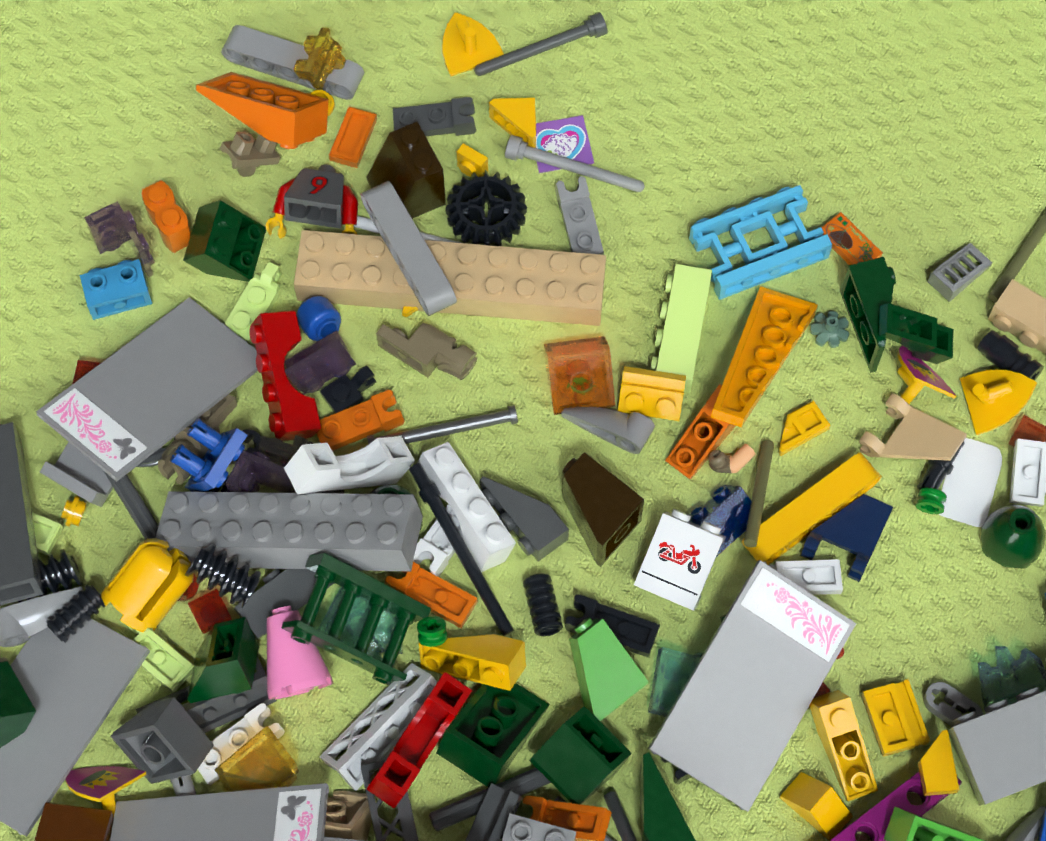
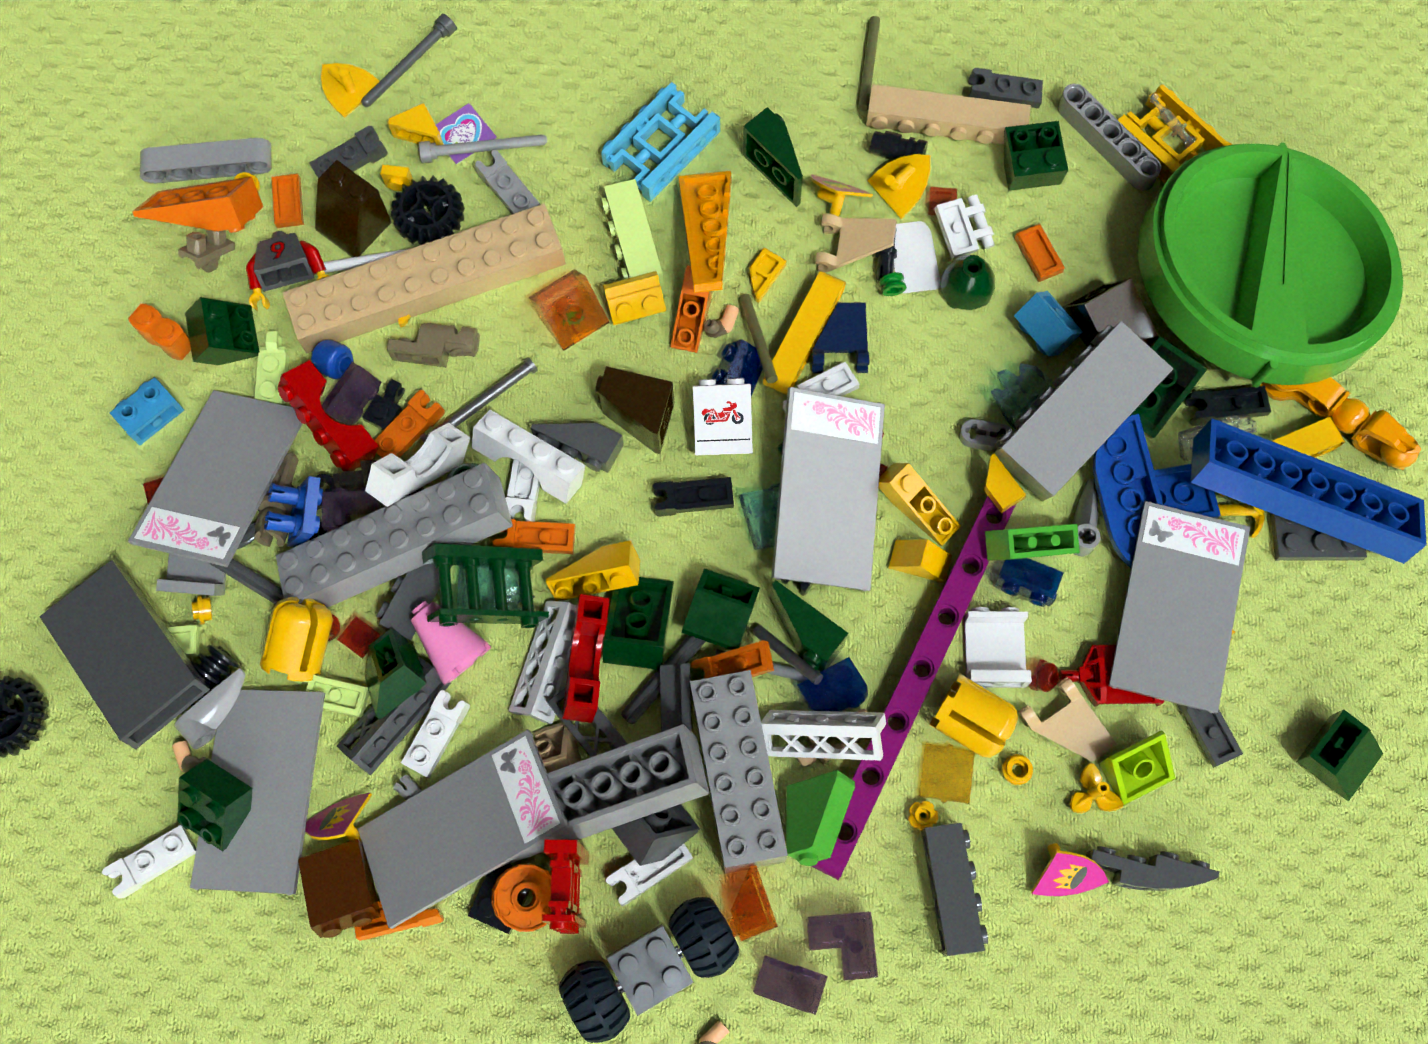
camera: 25 degrees left, 5 degrees up
(76, 613) = (246, 691): black piece -> none
(113, 227) = (120, 359): bracket -> none
(163, 741) = (373, 760): dark grey slope -> none
(224, 574) = (357, 600): black piece -> none
(258, 765) = (463, 742): clear yellow slope -> none
(322, 59) = (230, 144): clear yellow hips -> none
(408, 248) = (380, 266): light grey beam -> none
(430, 494) = (496, 459): black bar -> none
(432, 631) = (552, 567): green bush -> none
(542, 604) = (629, 505): black piece -> none
(603, 668) = (703, 531): bright green slope -> none
(615, 427) = (617, 338): light grey piece -> none
(830, 329) = (749, 186): sand green plant -> none
(850, 241) = (731, 111): orange tile -> none
(895, 717) = (947, 463): yellow plate -> none
(916, 332) = (820, 156): dark green slope -> none
(947, 288) = (822, 113): light grey slope -> none

